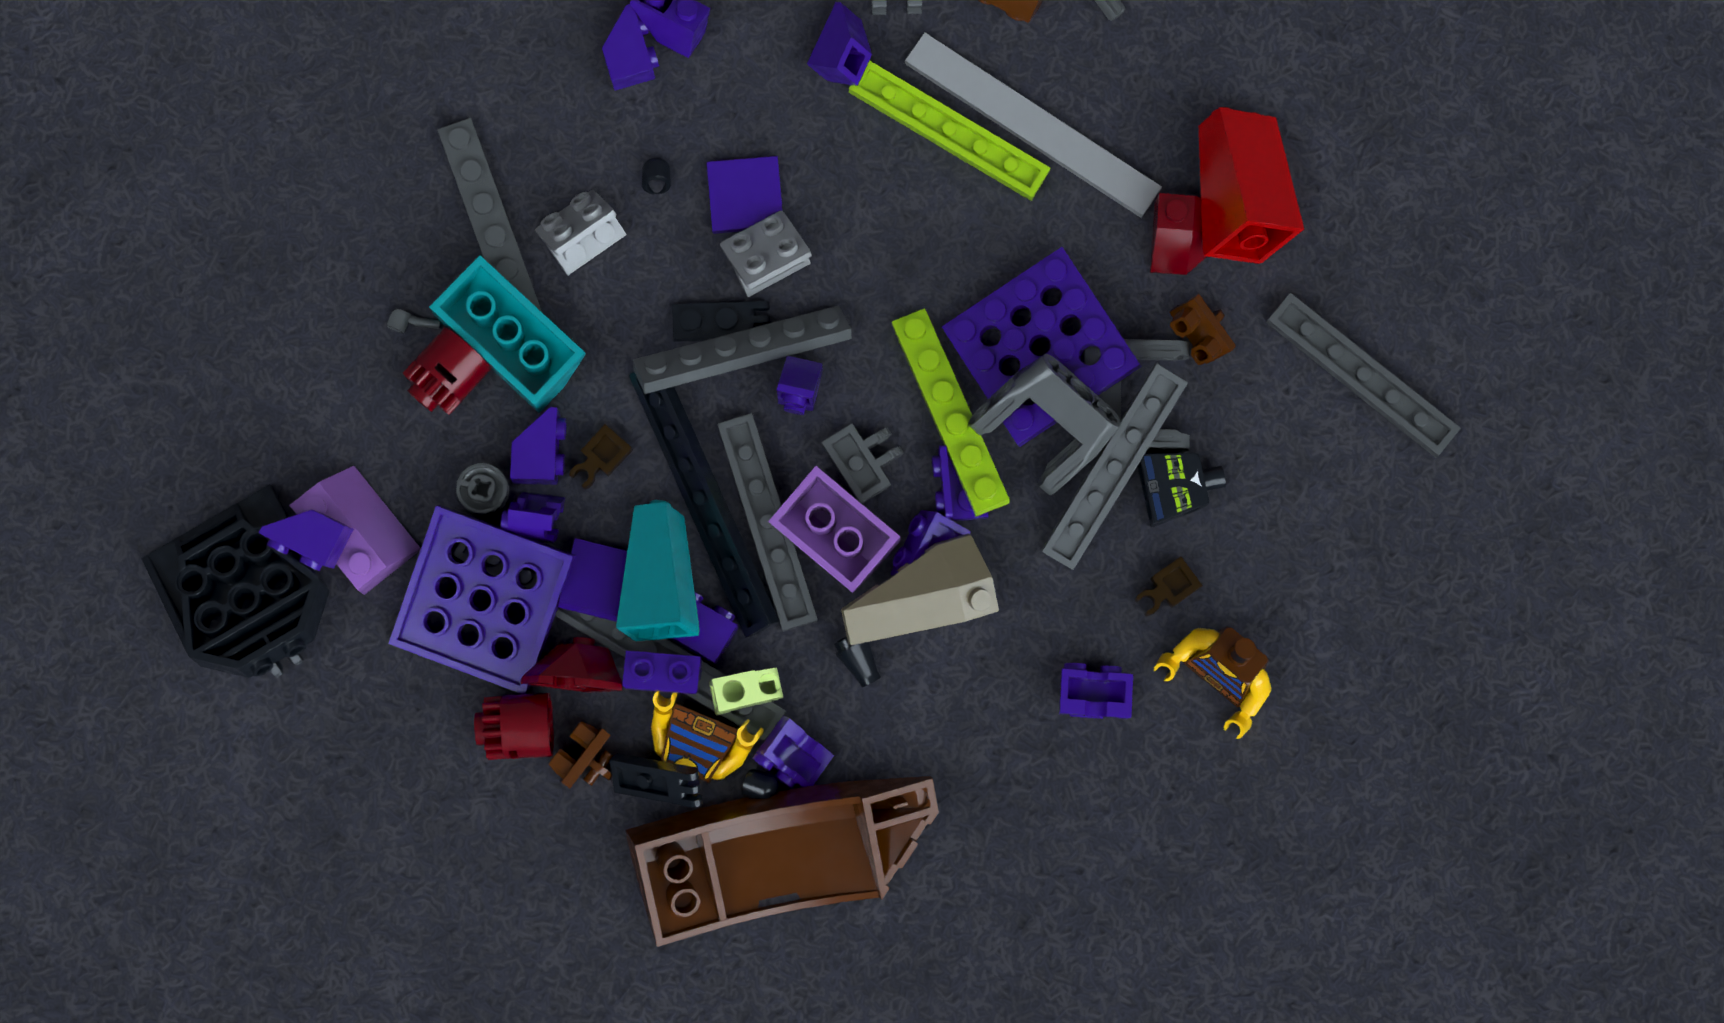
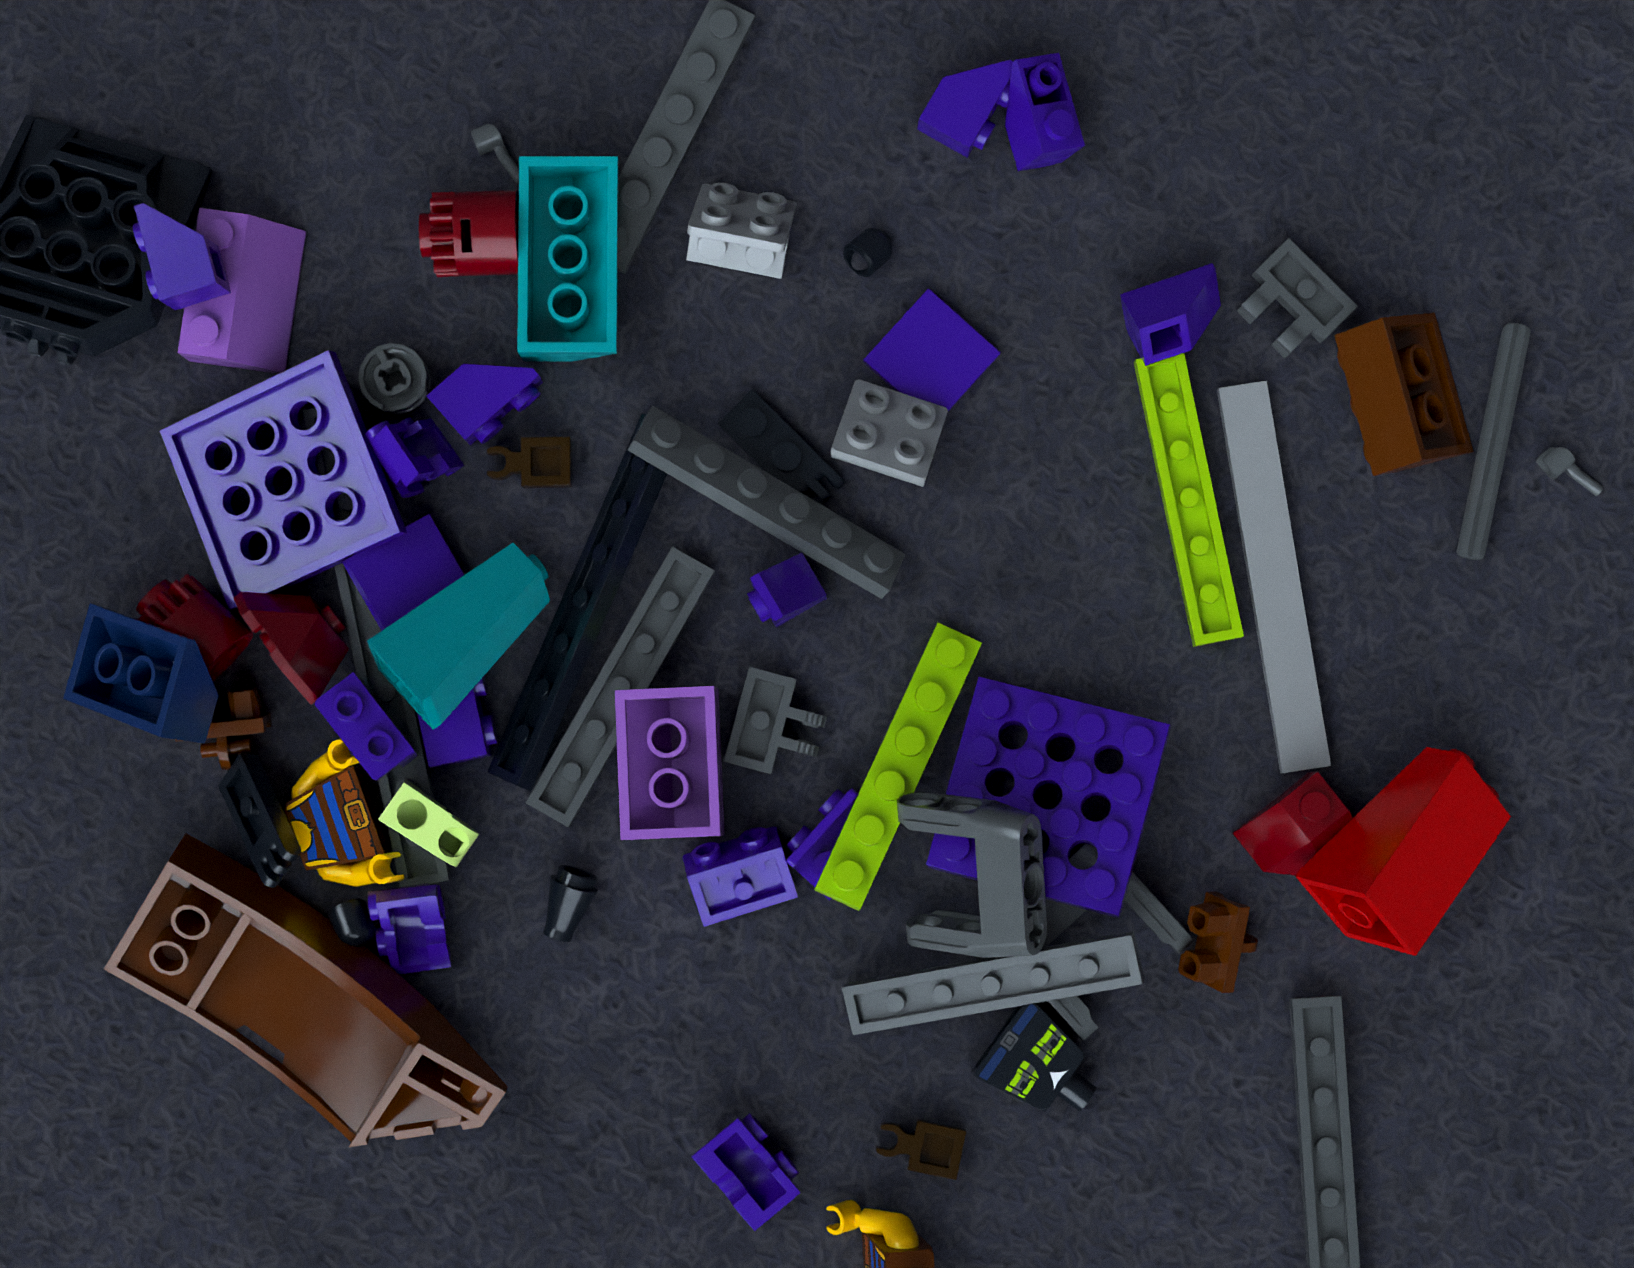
camera: 50 degrees right, 5 degrees up
(517, 768) = (142, 676): none -> dark blue slope
(934, 591) = (696, 918): dark tan wedge -> none

